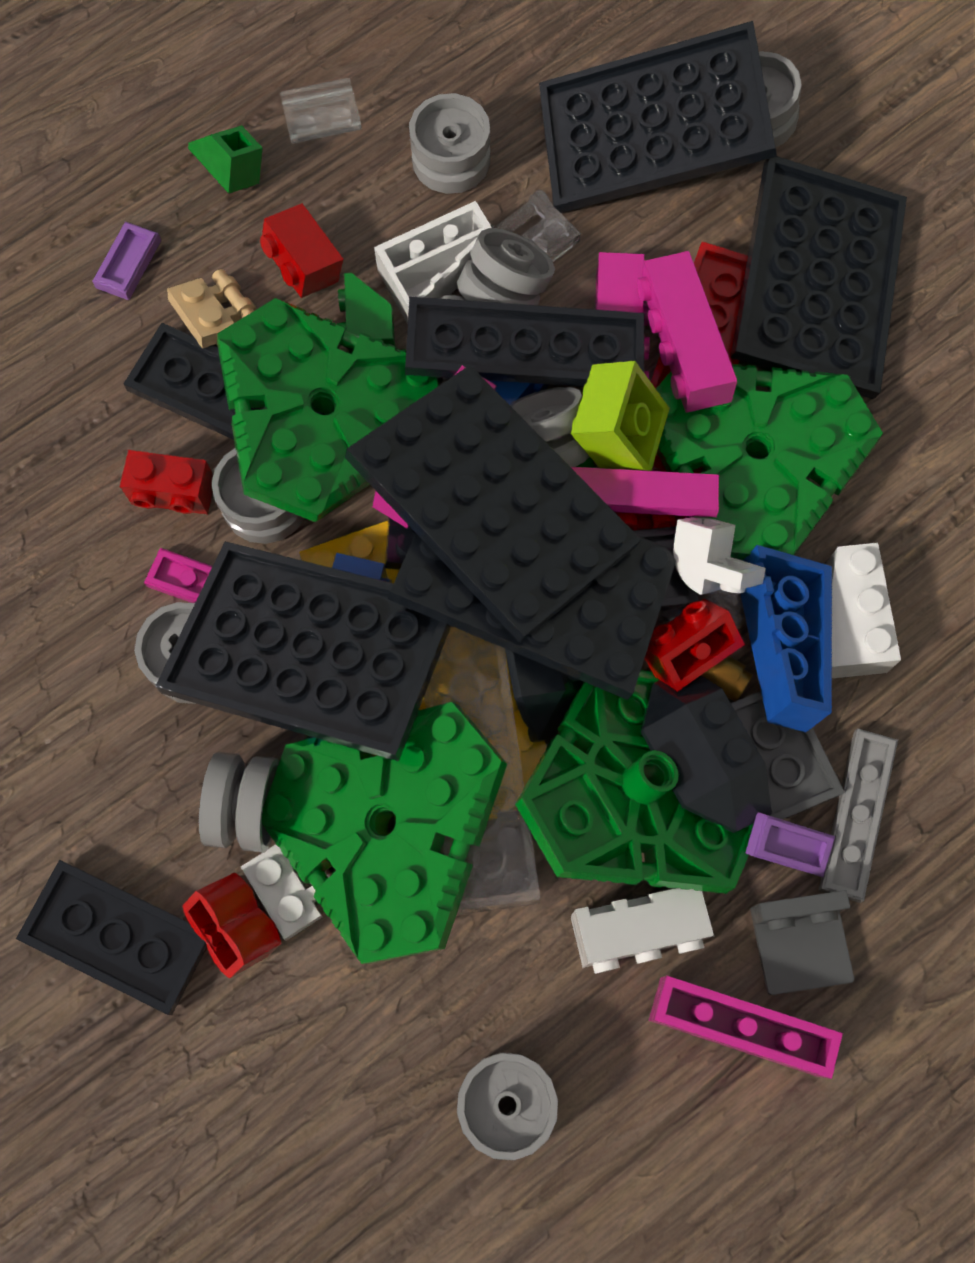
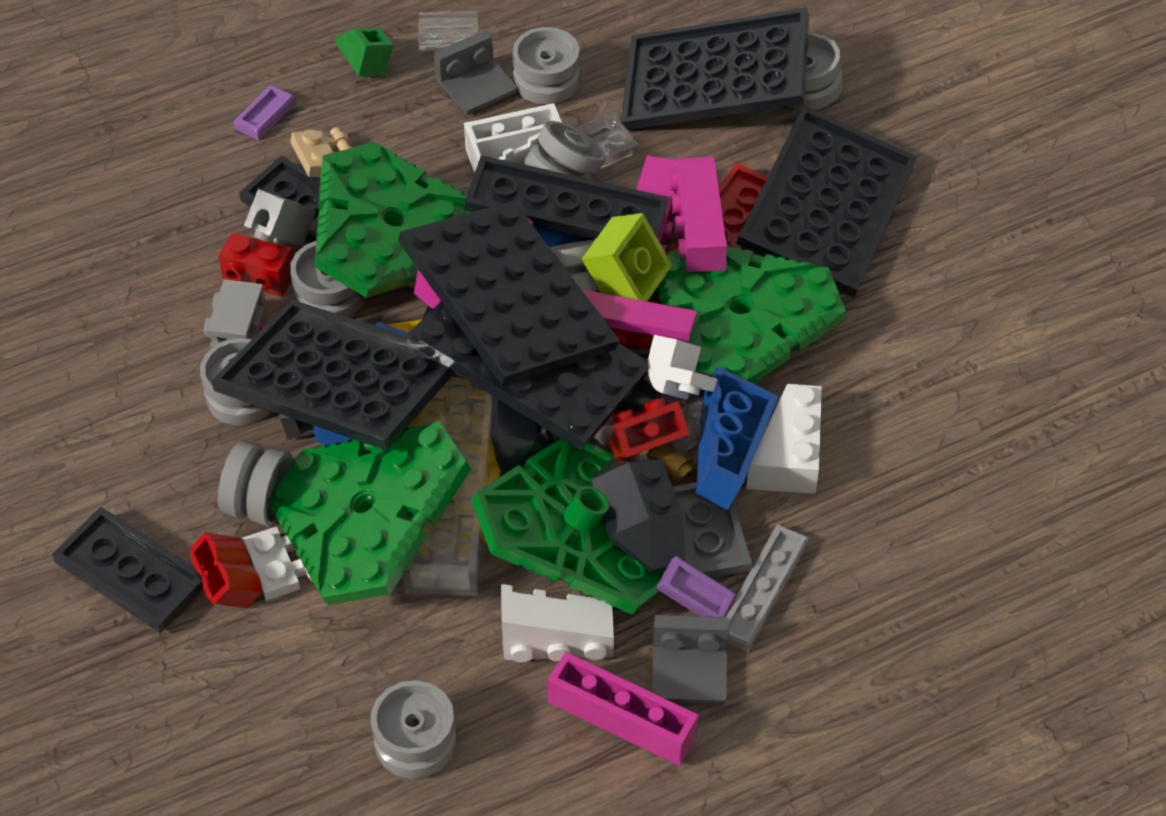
camera: 10 degrees right, 20 degrees down
(160, 564) = (235, 312): none -> light grey brick
(182, 423) = (279, 219): none -> light grey brick
(301, 250) = (406, 122): red brick -> none
(364, 169) = (471, 73): none -> dark grey bracket
(366, 310) = (448, 167): green slope -> none

